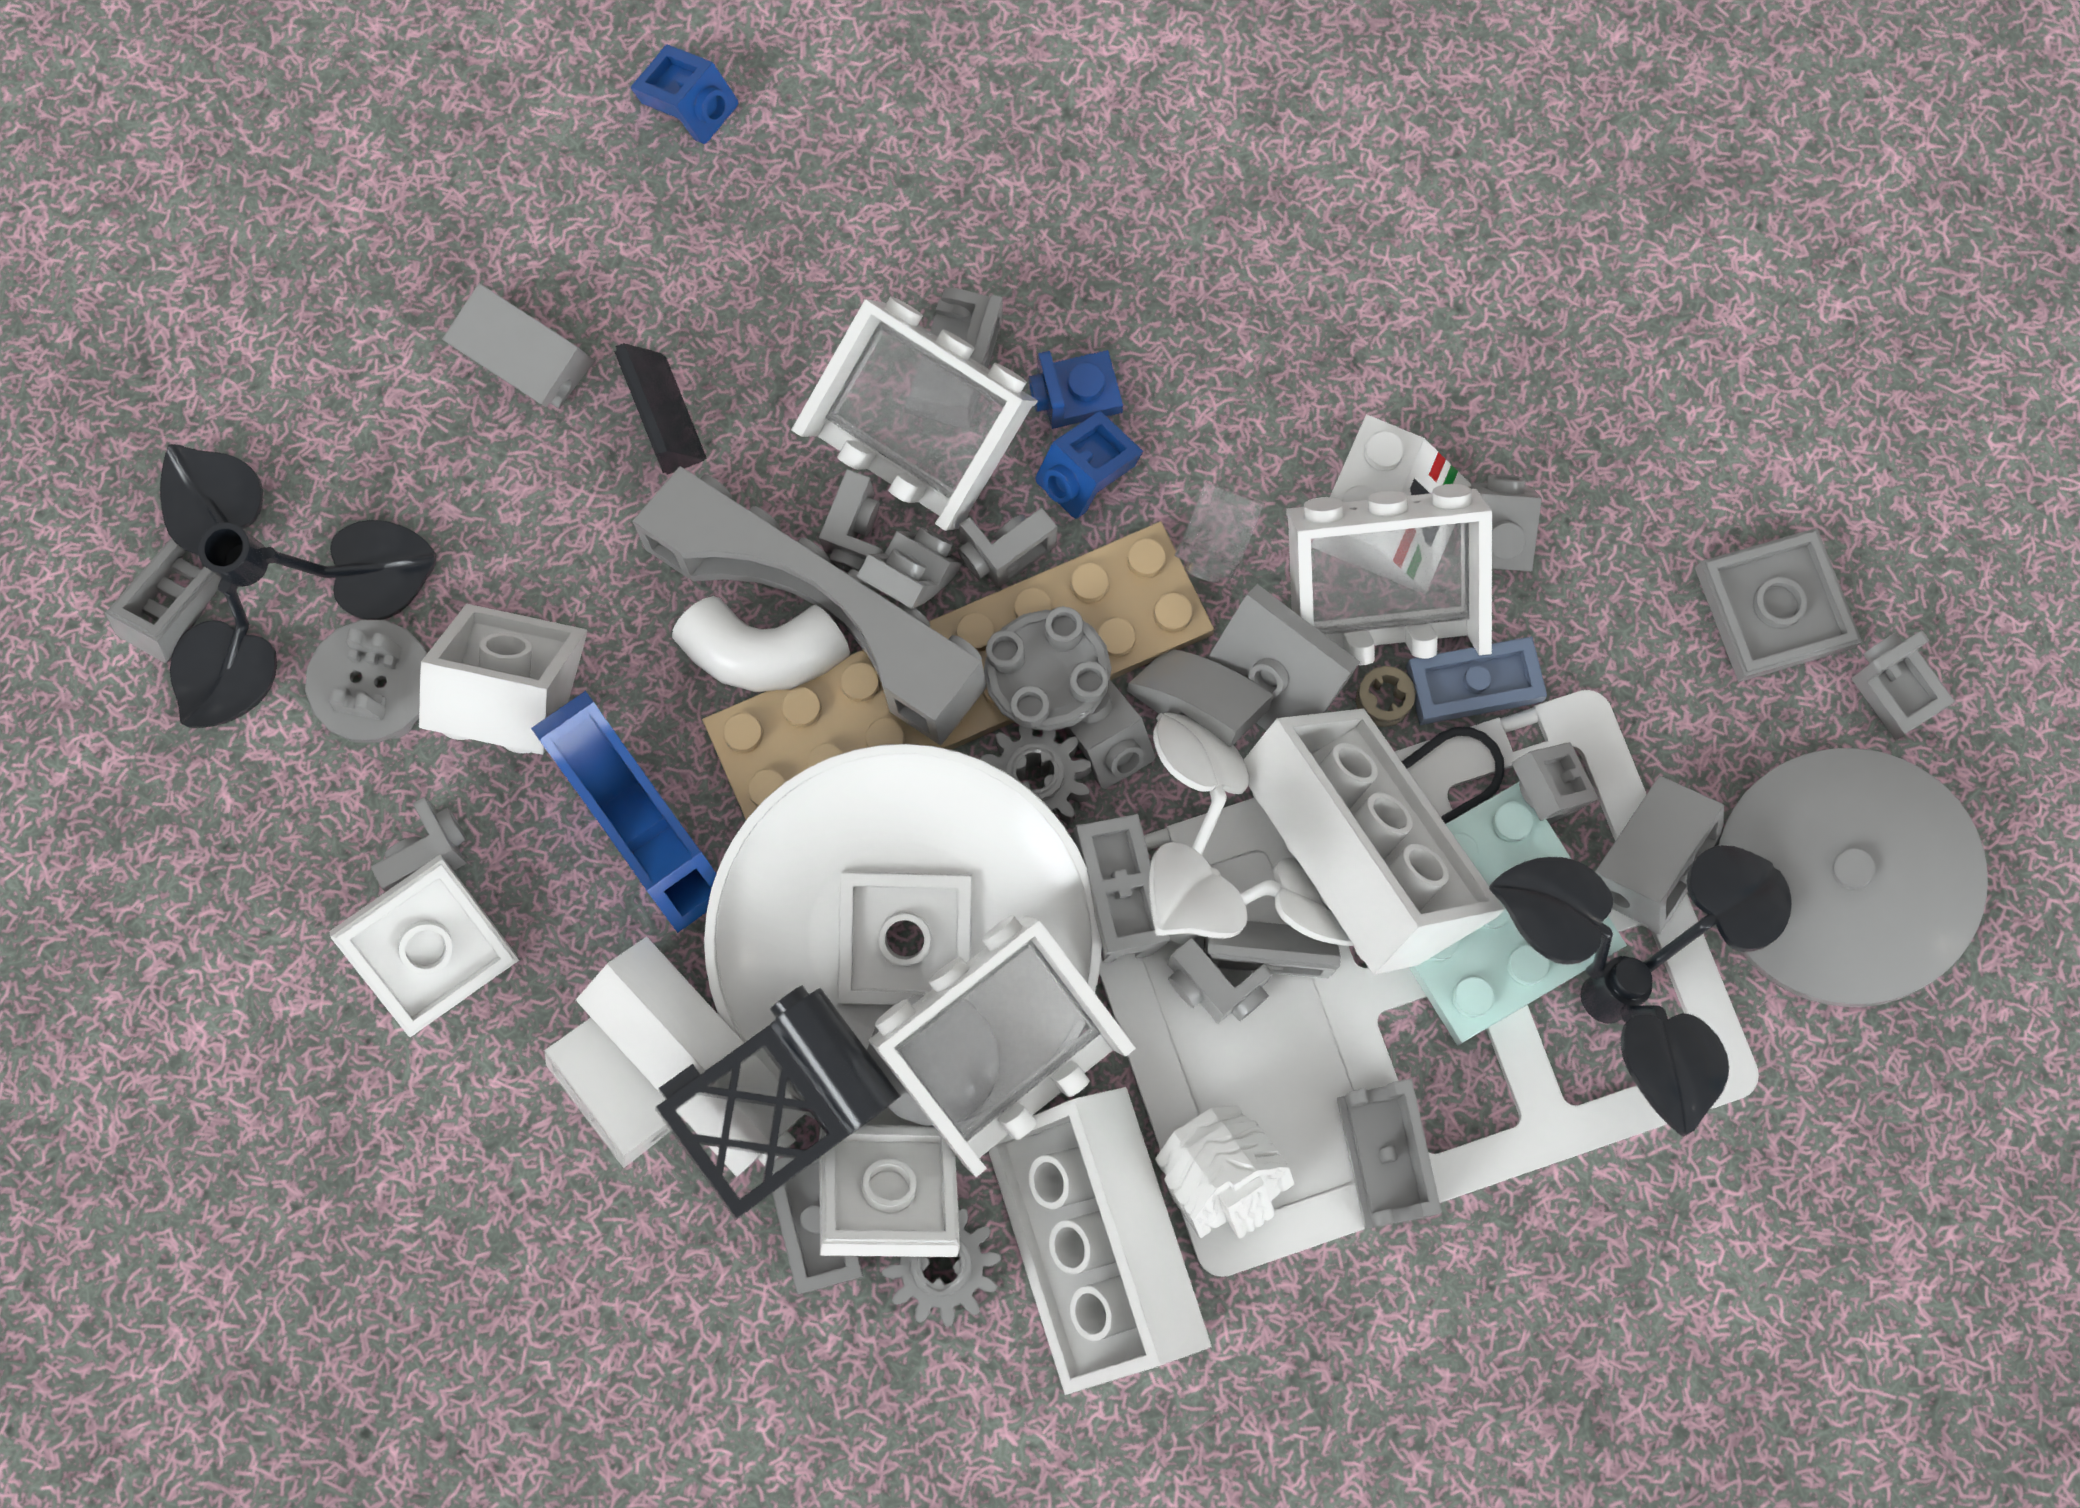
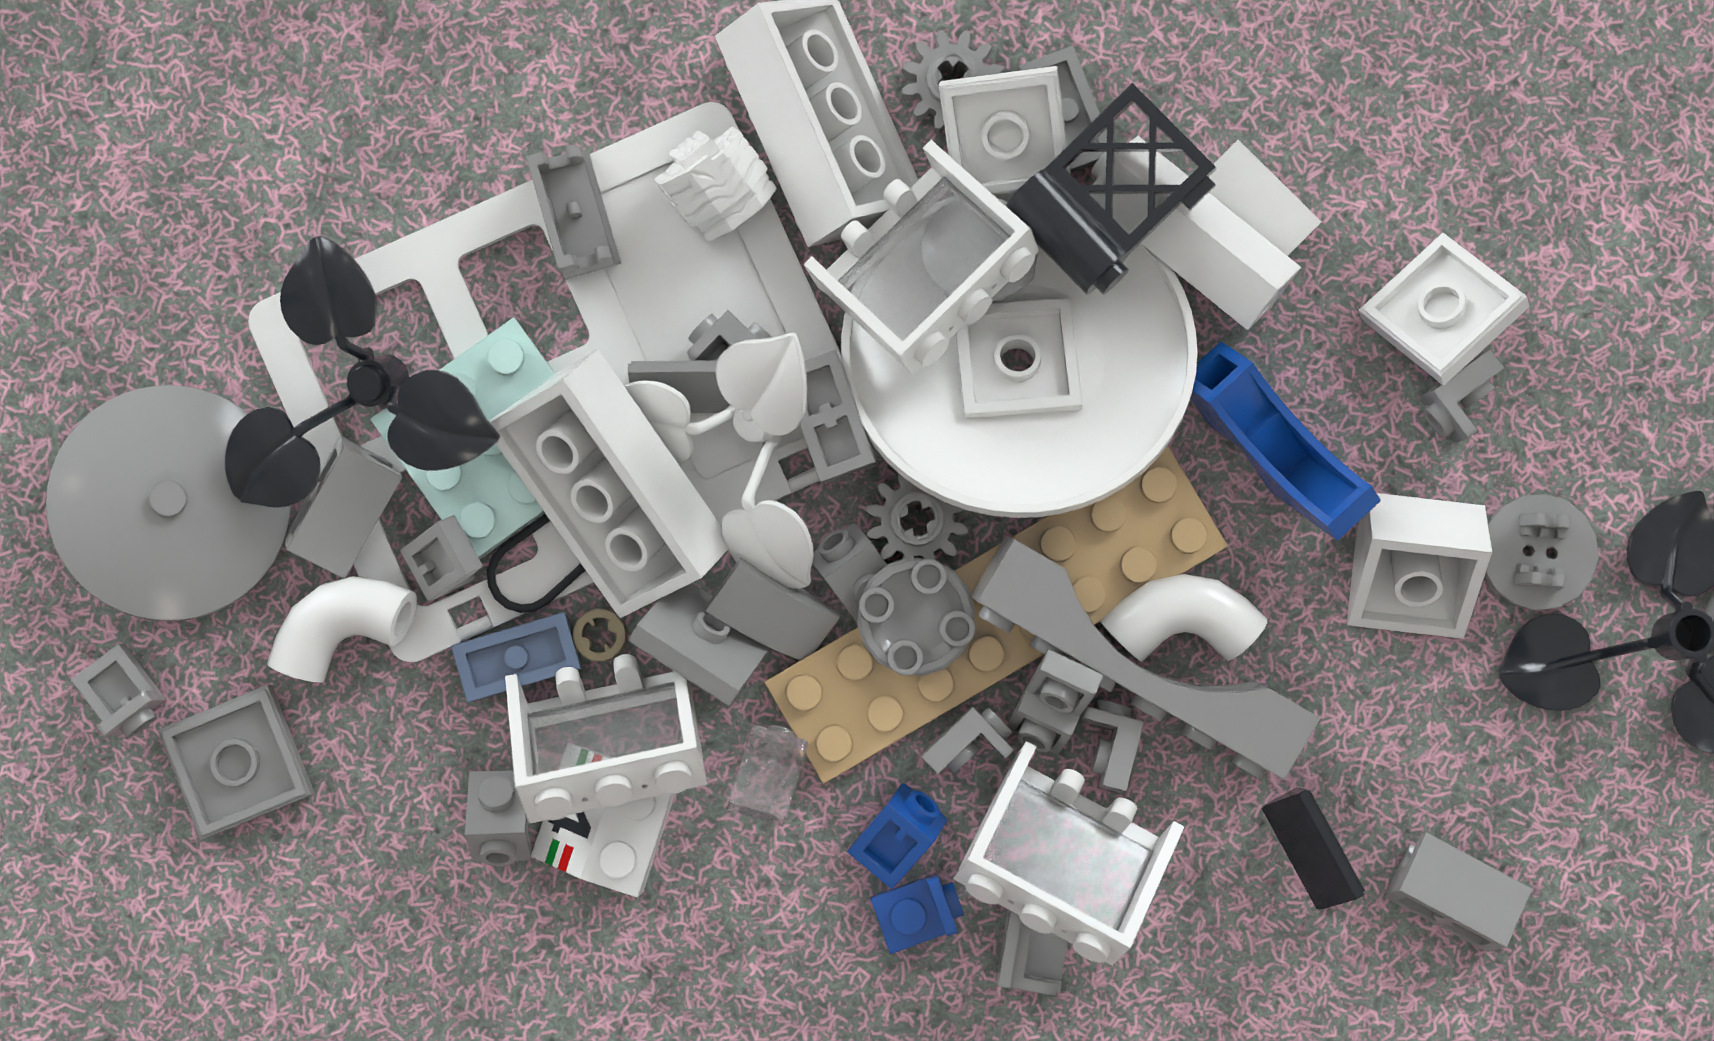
camera: 175 degrees right, 10 degrees up
(1669, 740) = (335, 613): none -> white cylinder

